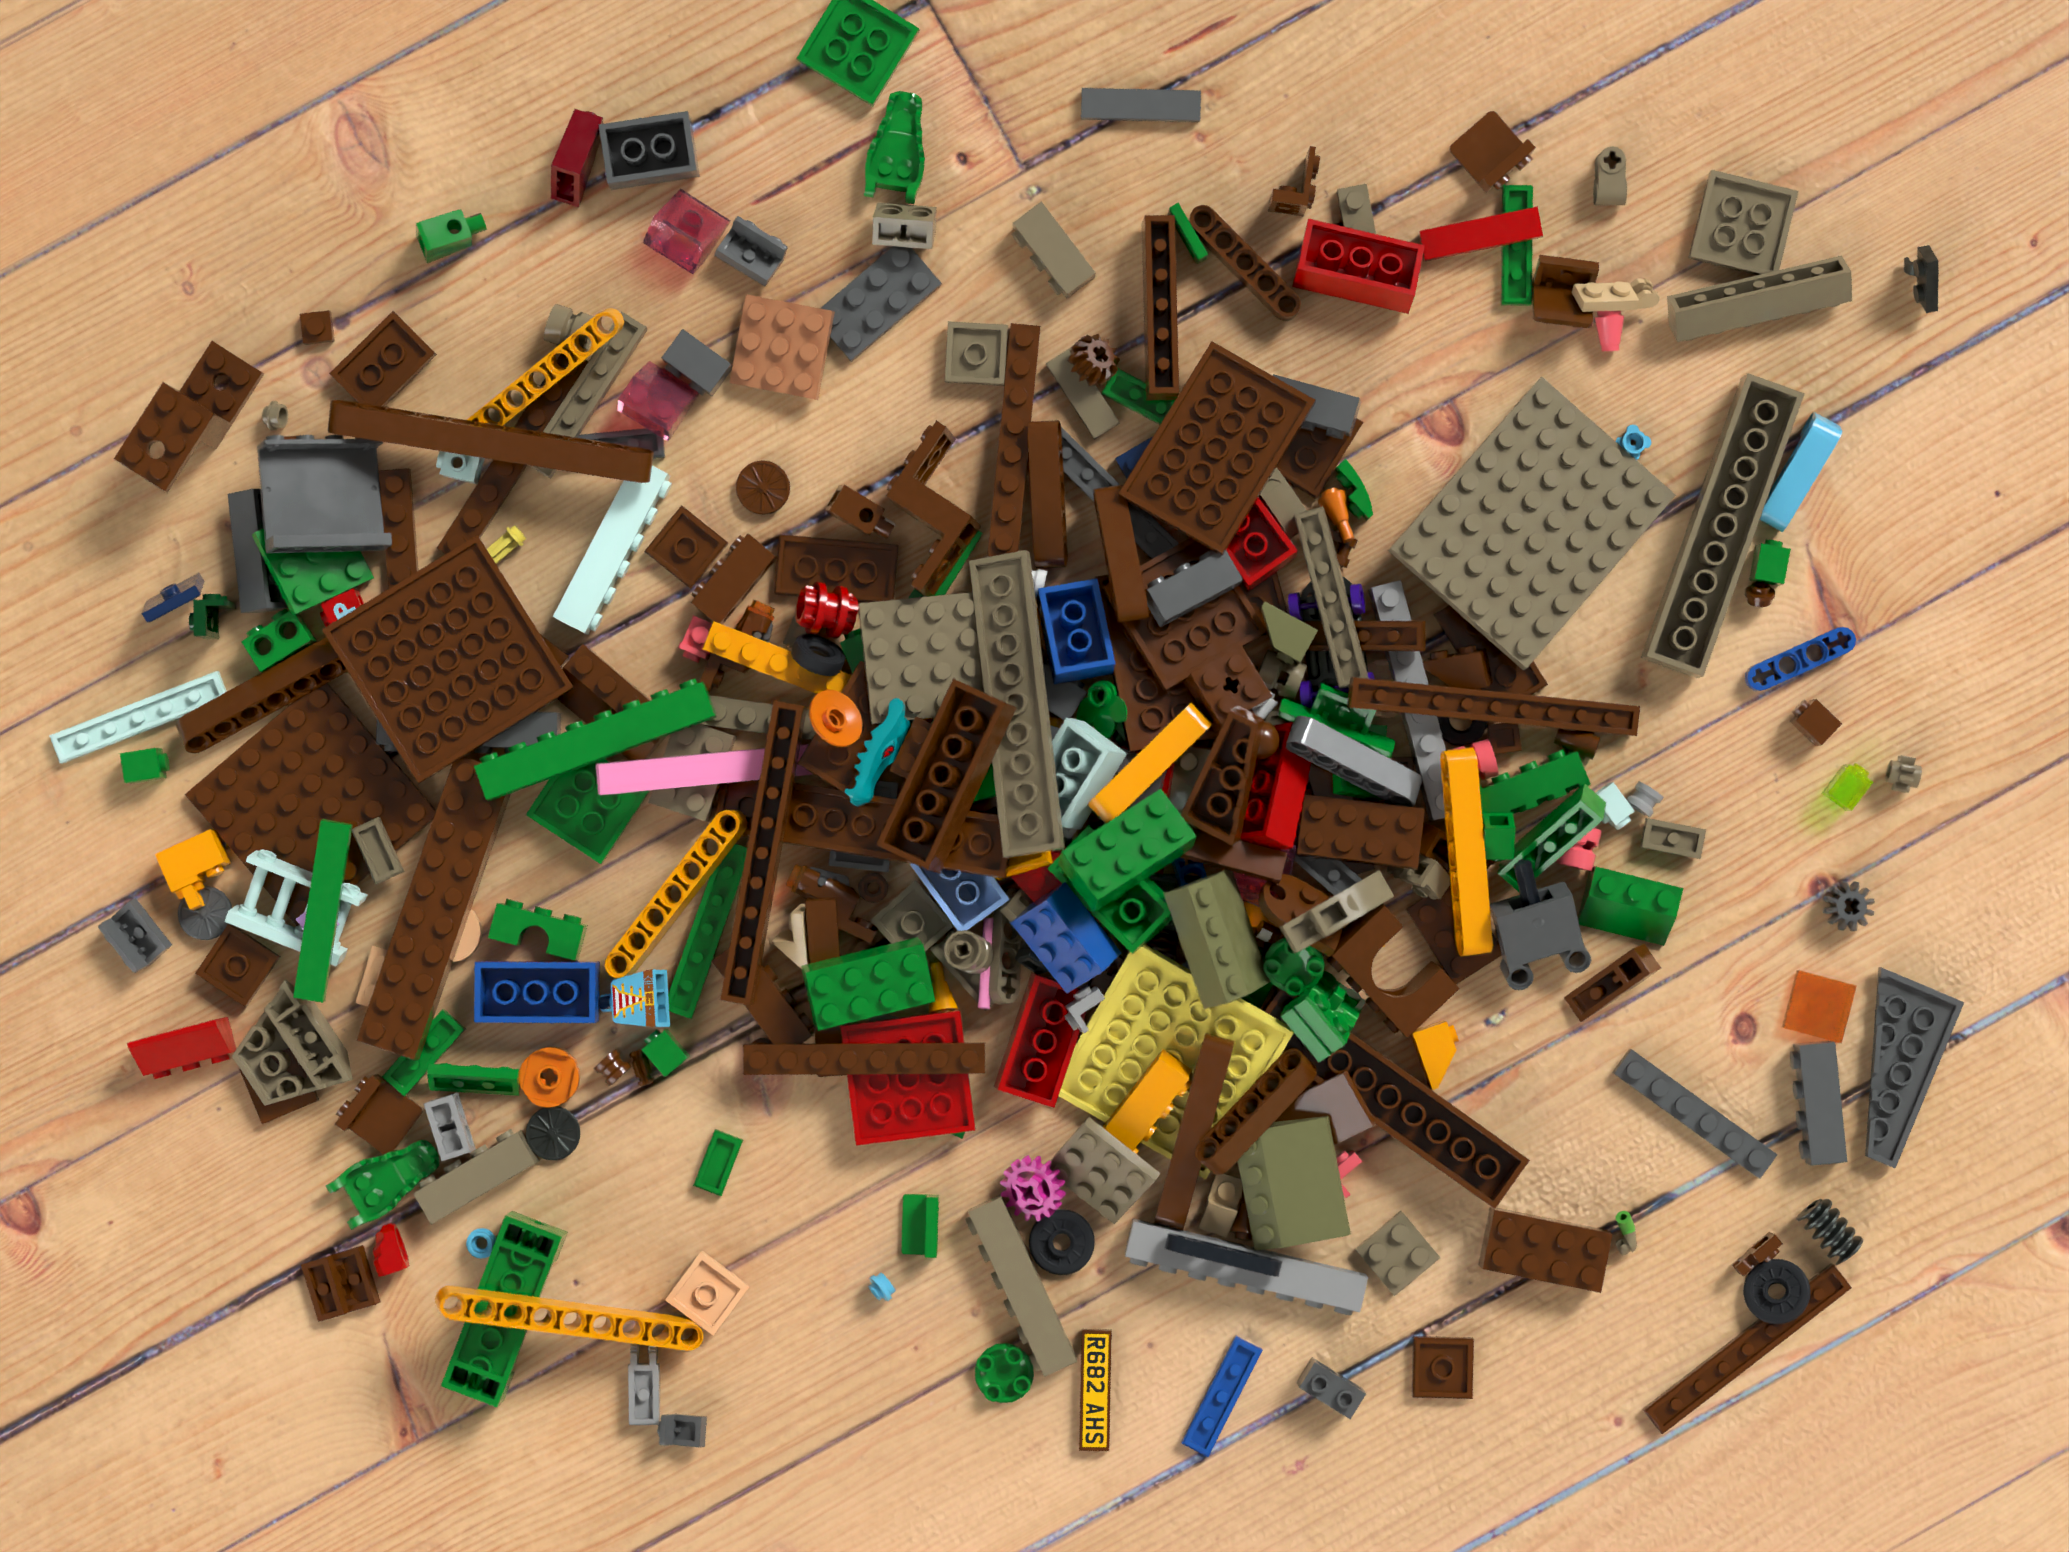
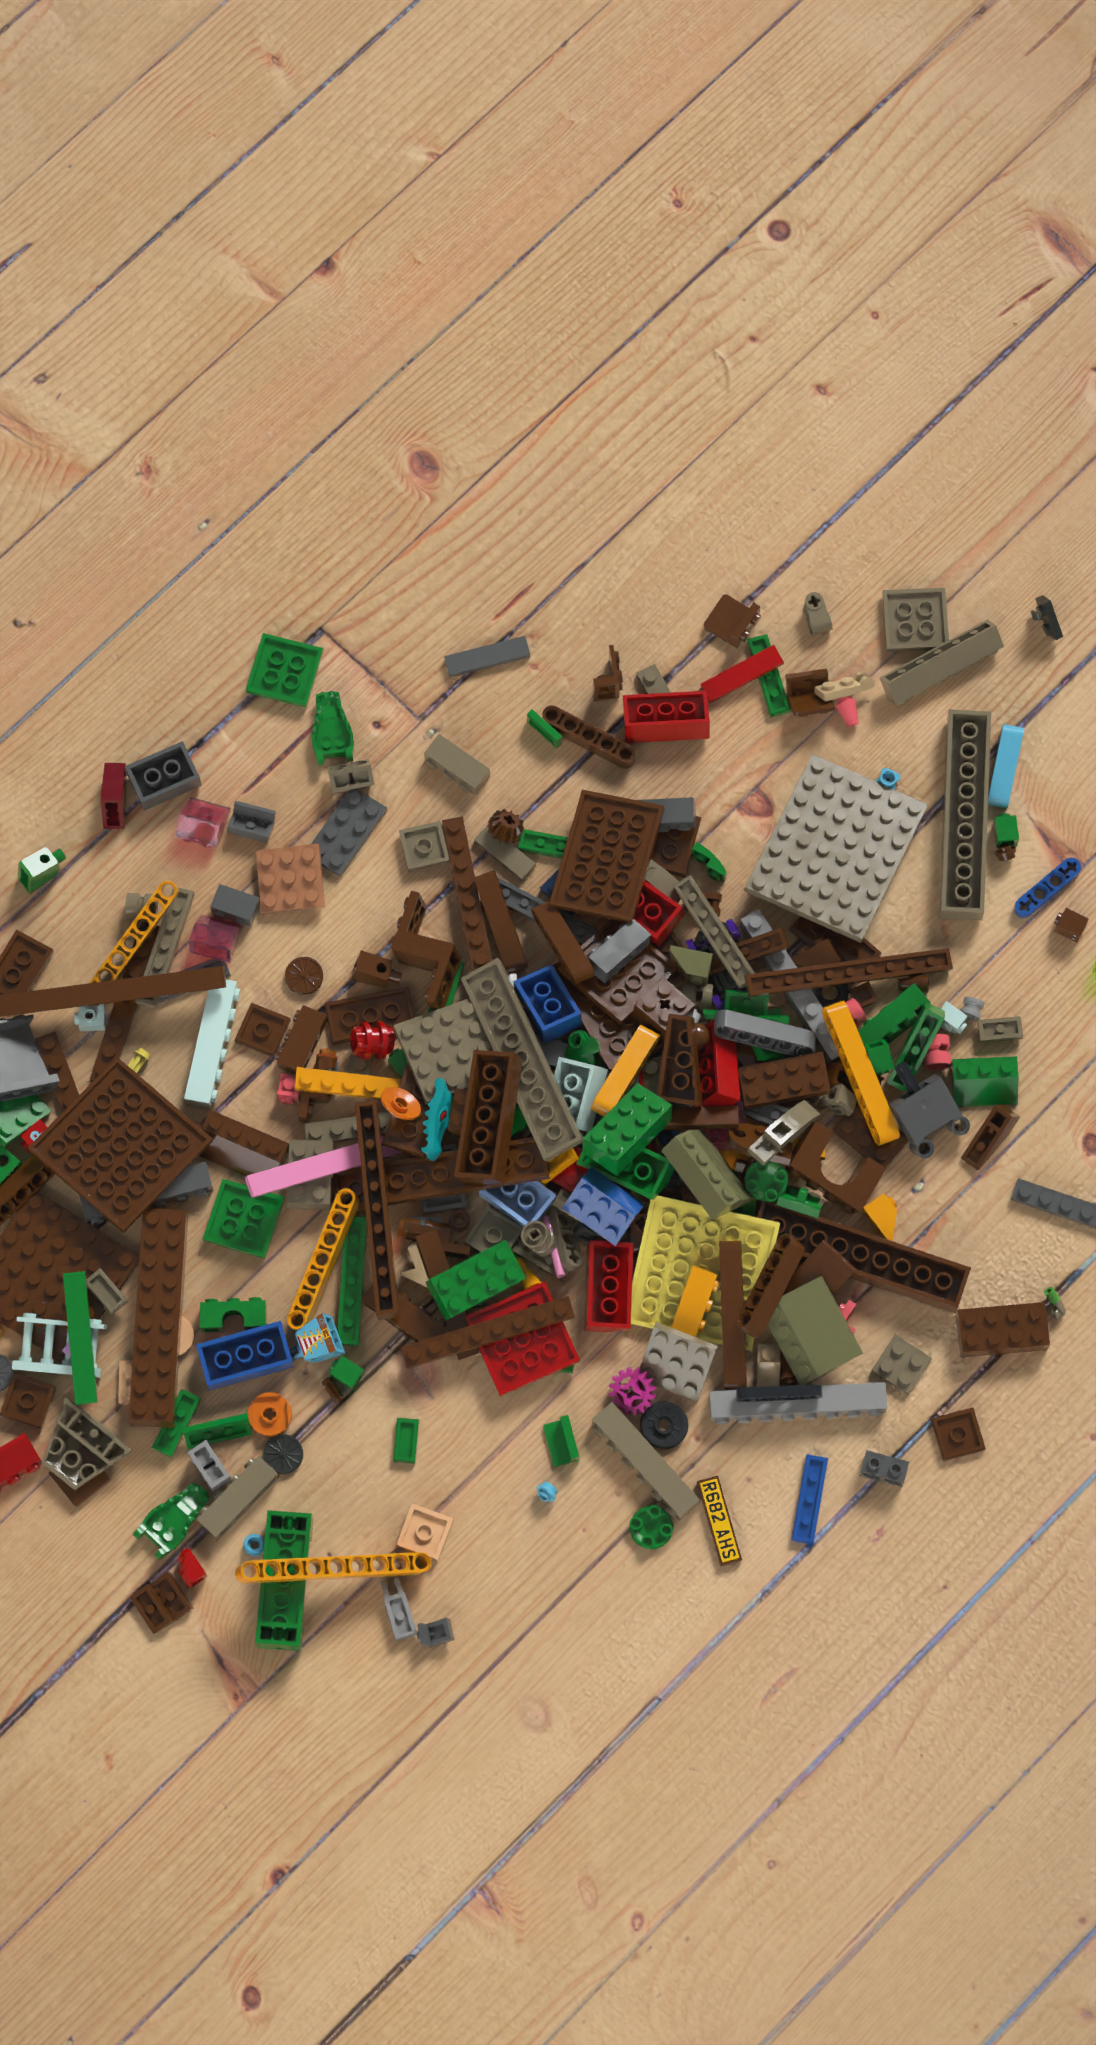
camera: 15 degrees left, 15 degrees down
(379, 1114) = (156, 1474): reddish brown bracket -> none
(595, 740) = (231, 1171): green brick -> none
(612, 1067) = (312, 1394): reddish brown wheel -> none
(818, 655) = (375, 1070): black tyre -> none
(1083, 1001) = (629, 1245): light grey bracket -> none
(1160, 307) = (540, 779): reddish brown brick -> none
(1316, 1024) = (793, 1213): green brick -> none
(1336, 508) = (702, 878): orange cone -> none

